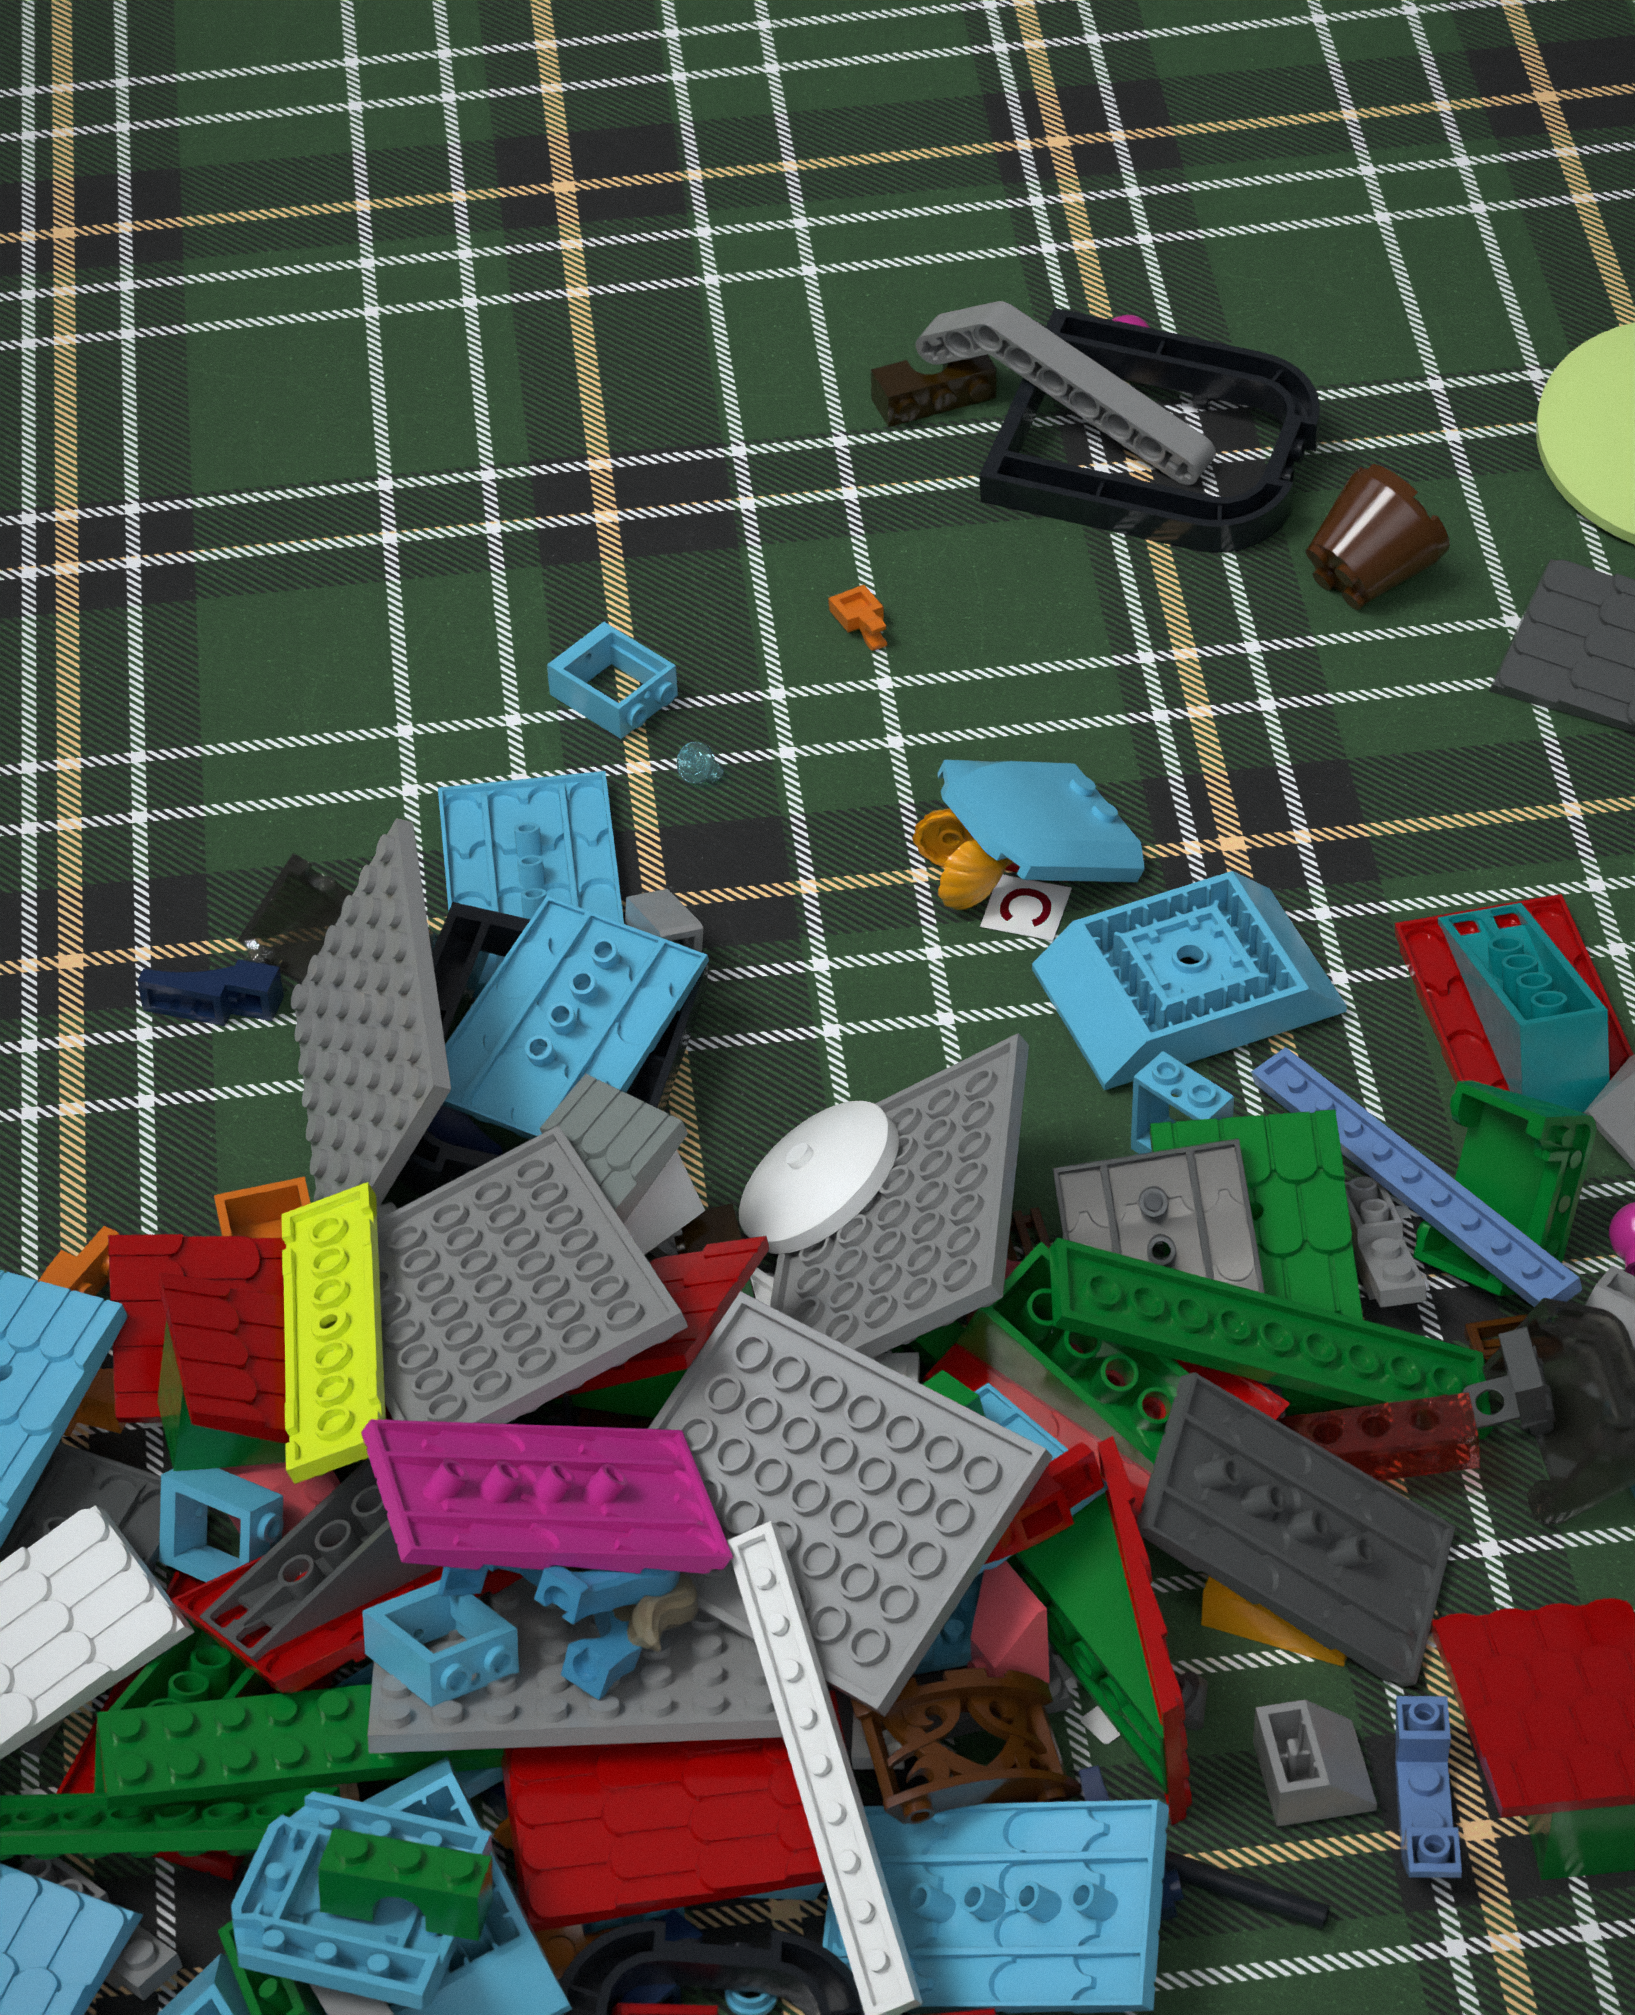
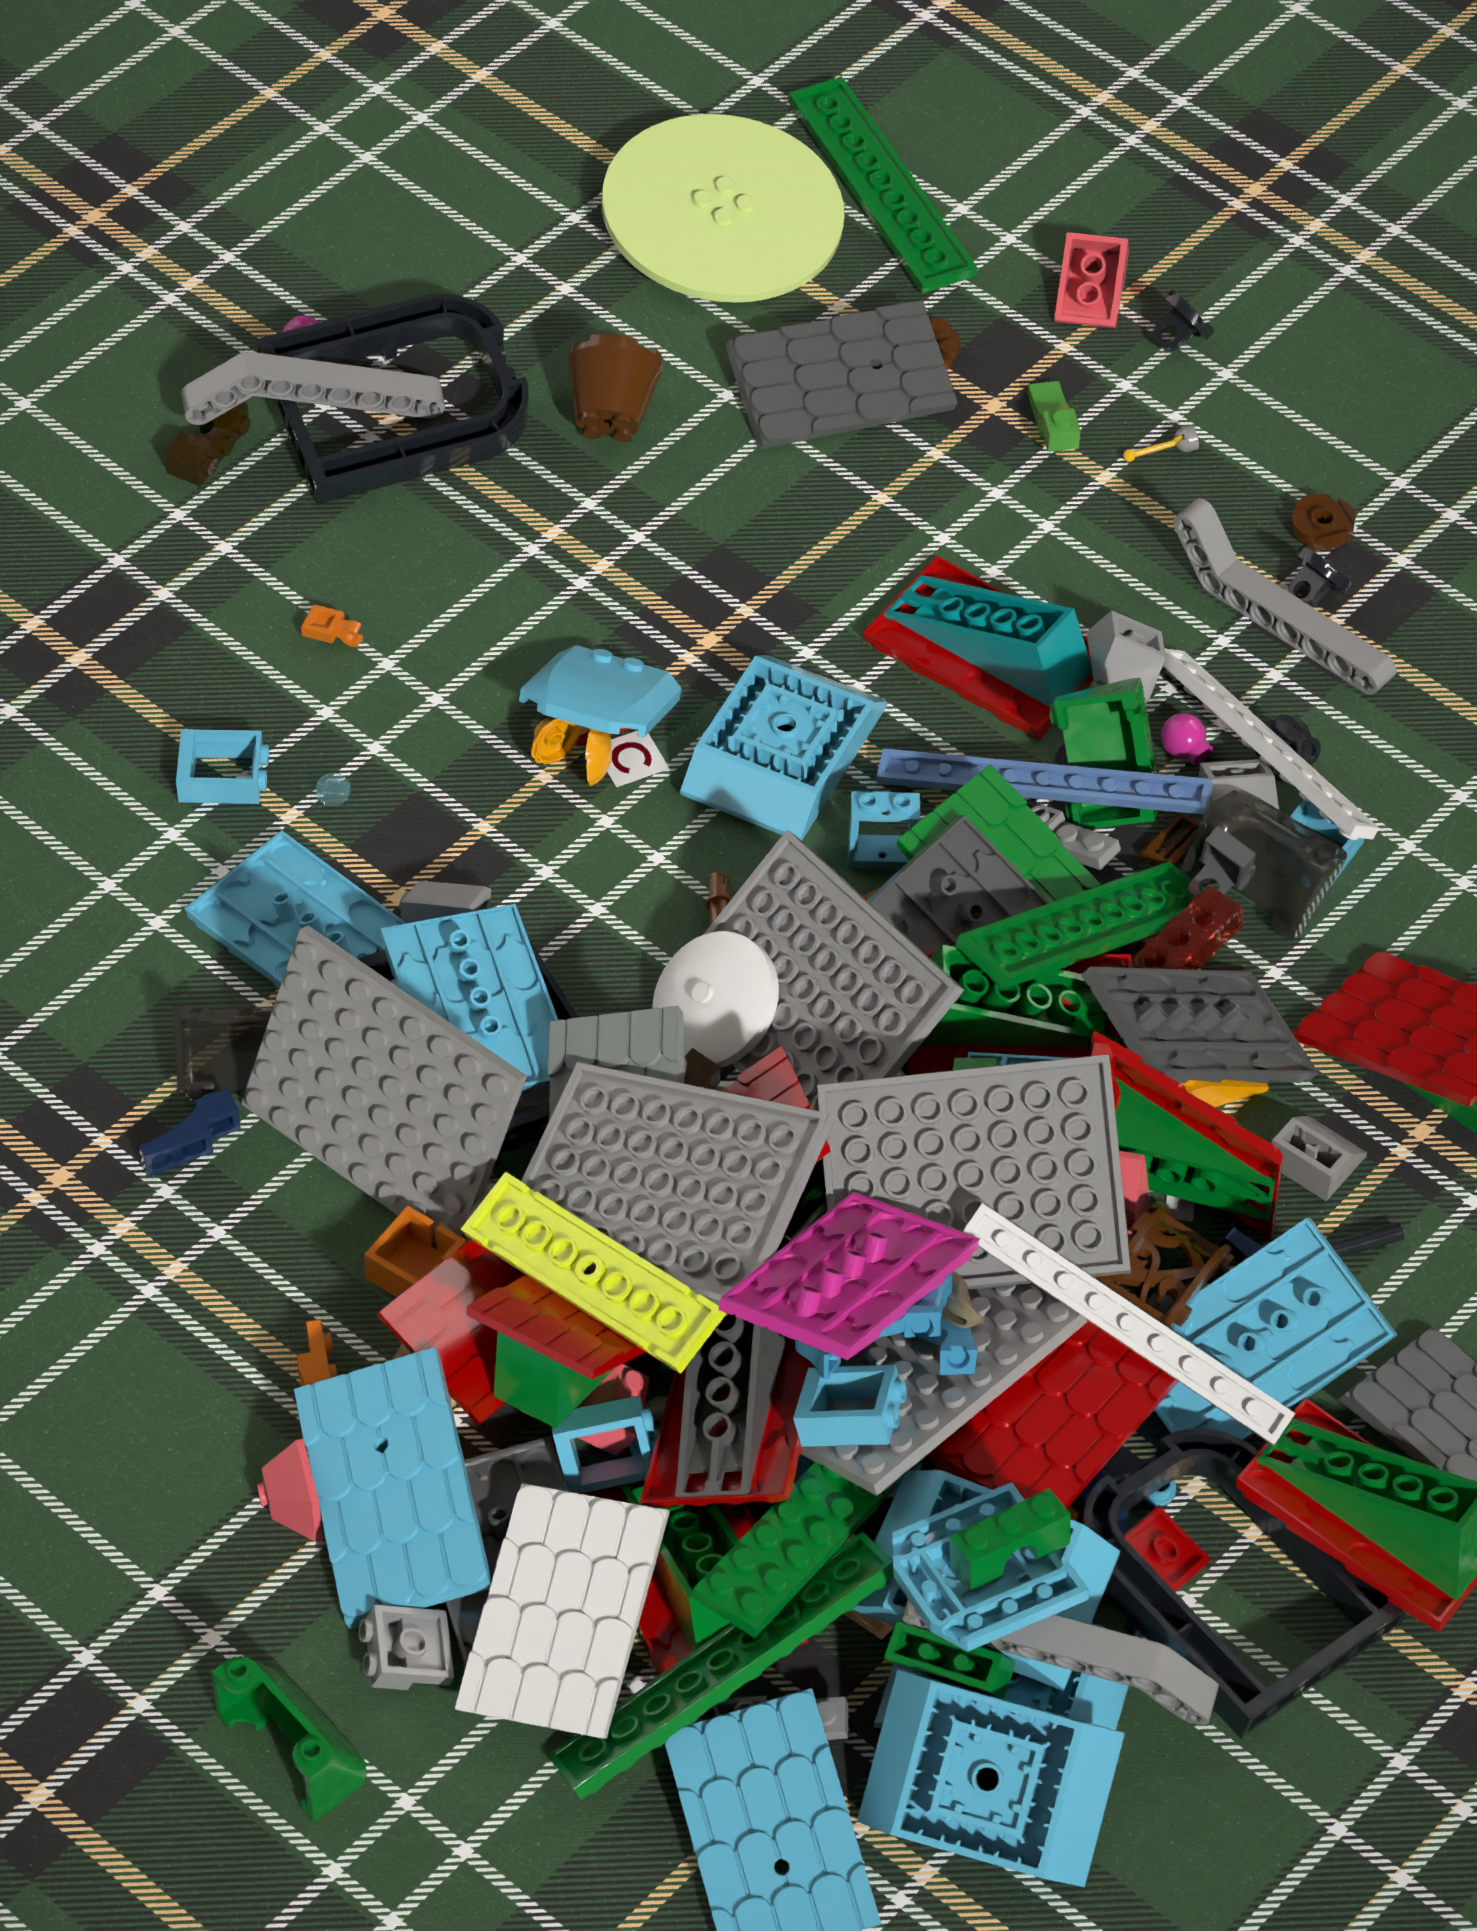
camera: 45 degrees left, 5 degrees up
(1423, 1788) = (1359, 1101): medium blue slope -> none

